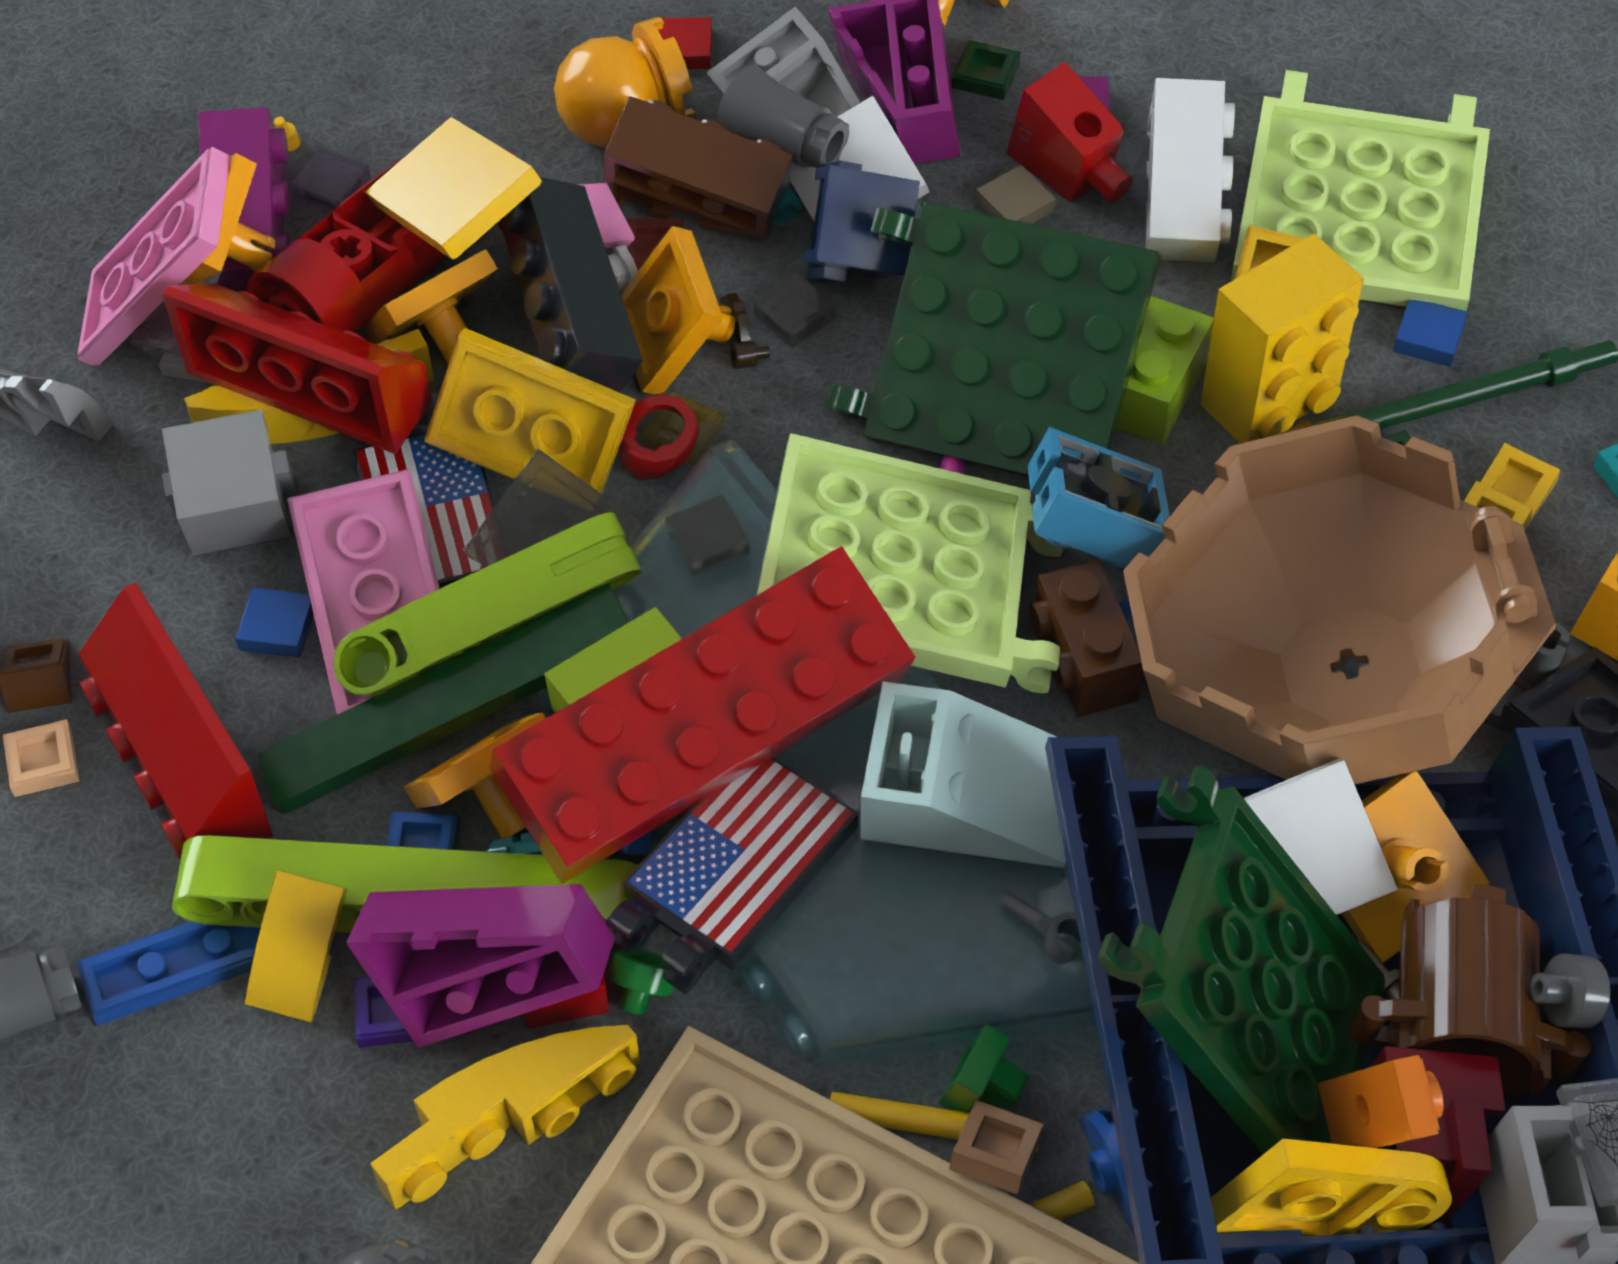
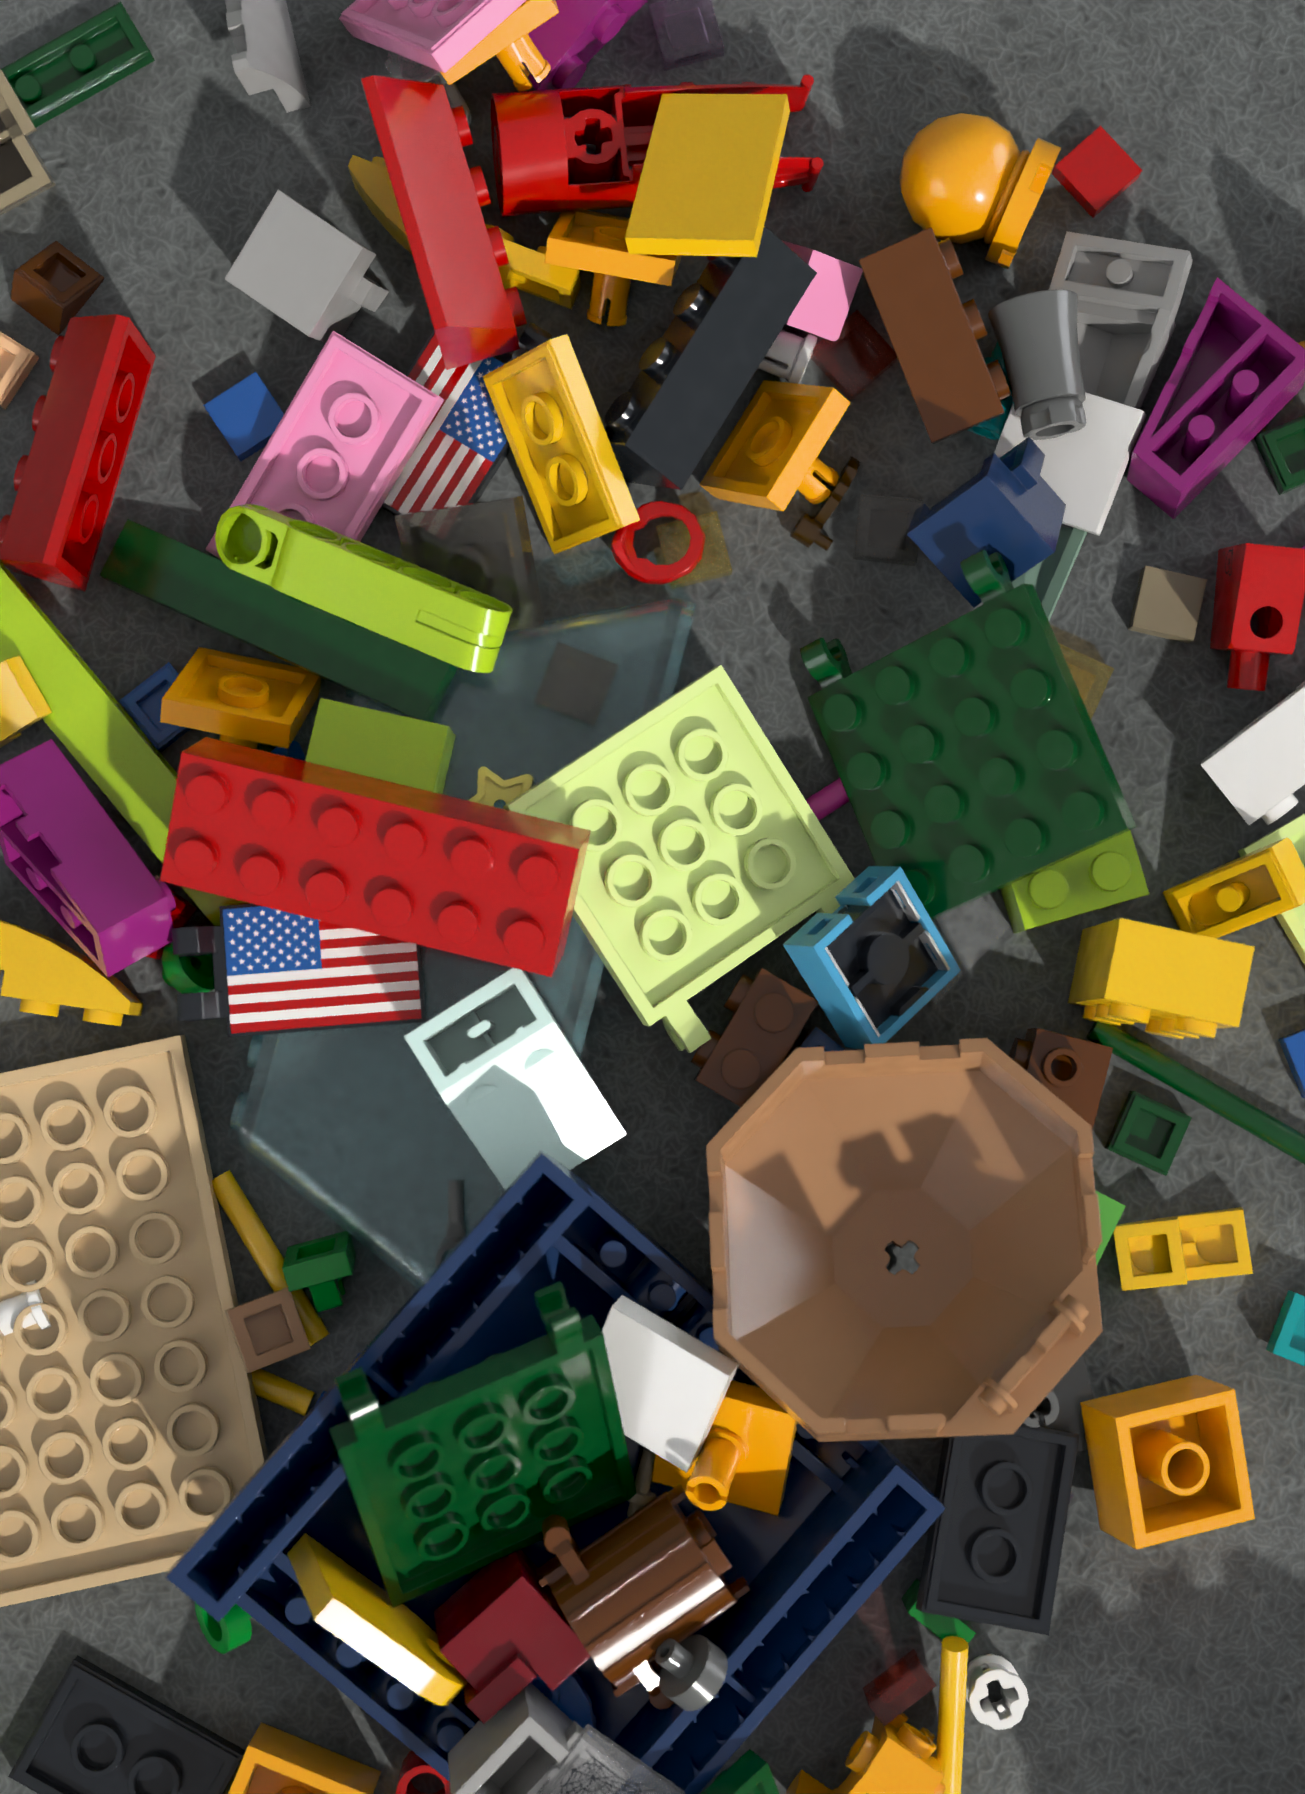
camera: 45 degrees right, 30 degrees up
(1383, 1104) = (438, 1635): orange tile -> none

